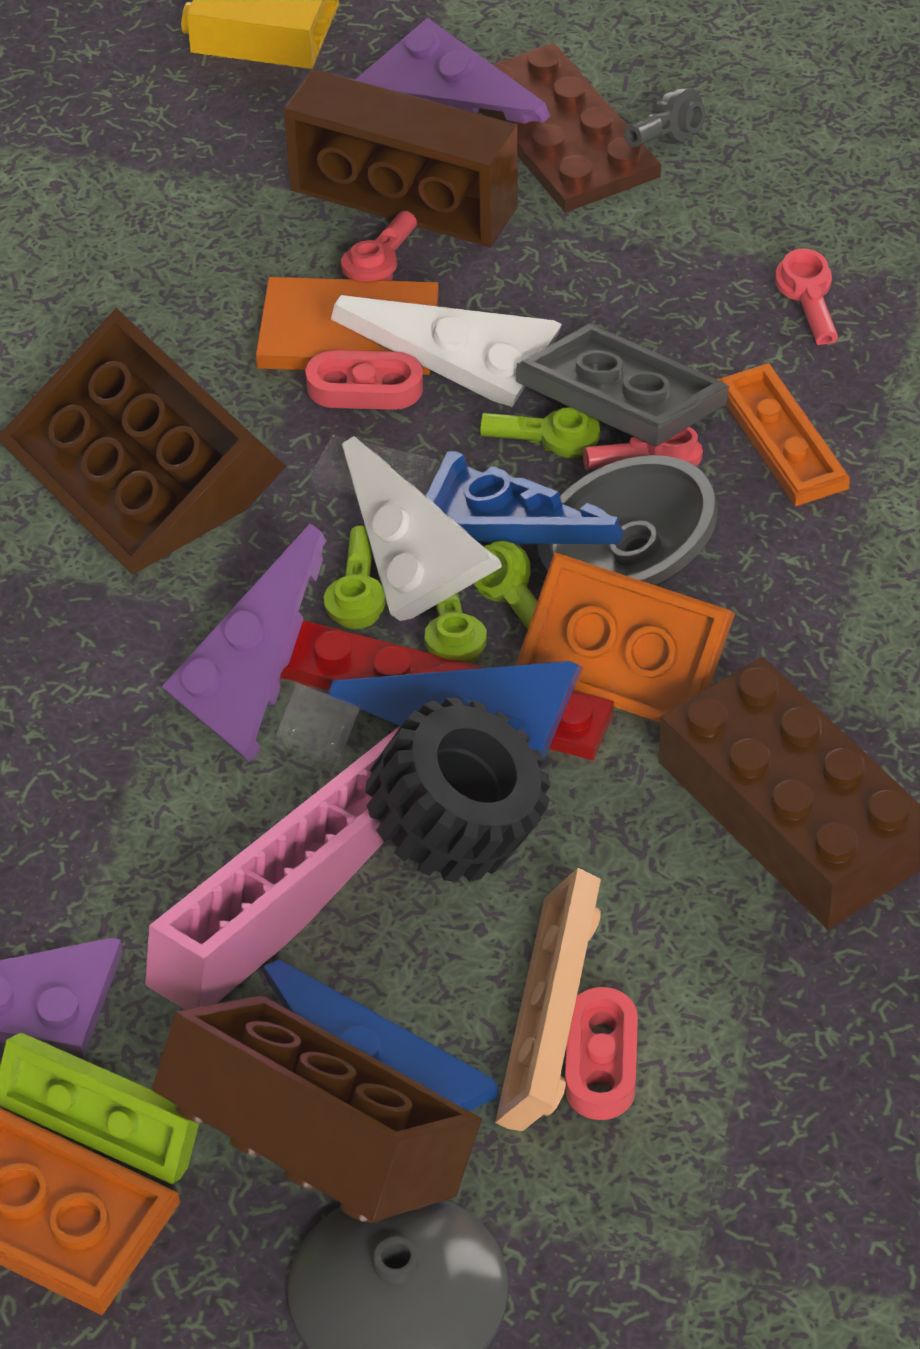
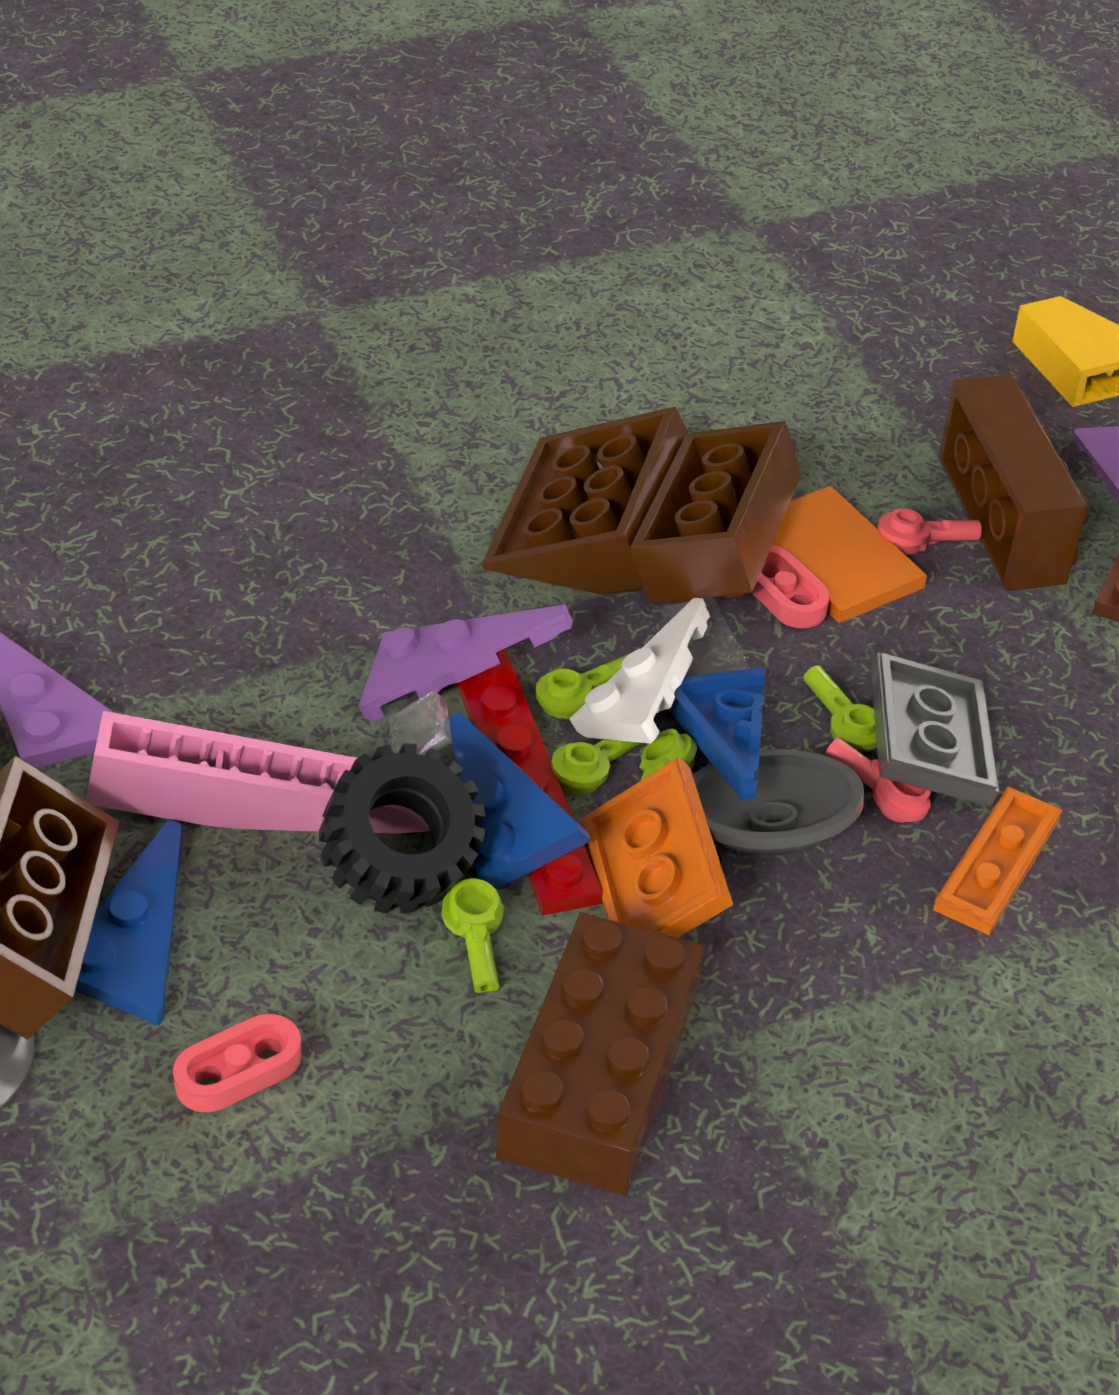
camera: 50 degrees right, 5 degrees down
(266, 361) = (716, 513): none -> reddish brown brick
(459, 344) = (871, 611): white wing -> none
(548, 1002) = (173, 1031): light nougat plate -> none
(573, 805) = (474, 913): none -> lime plate

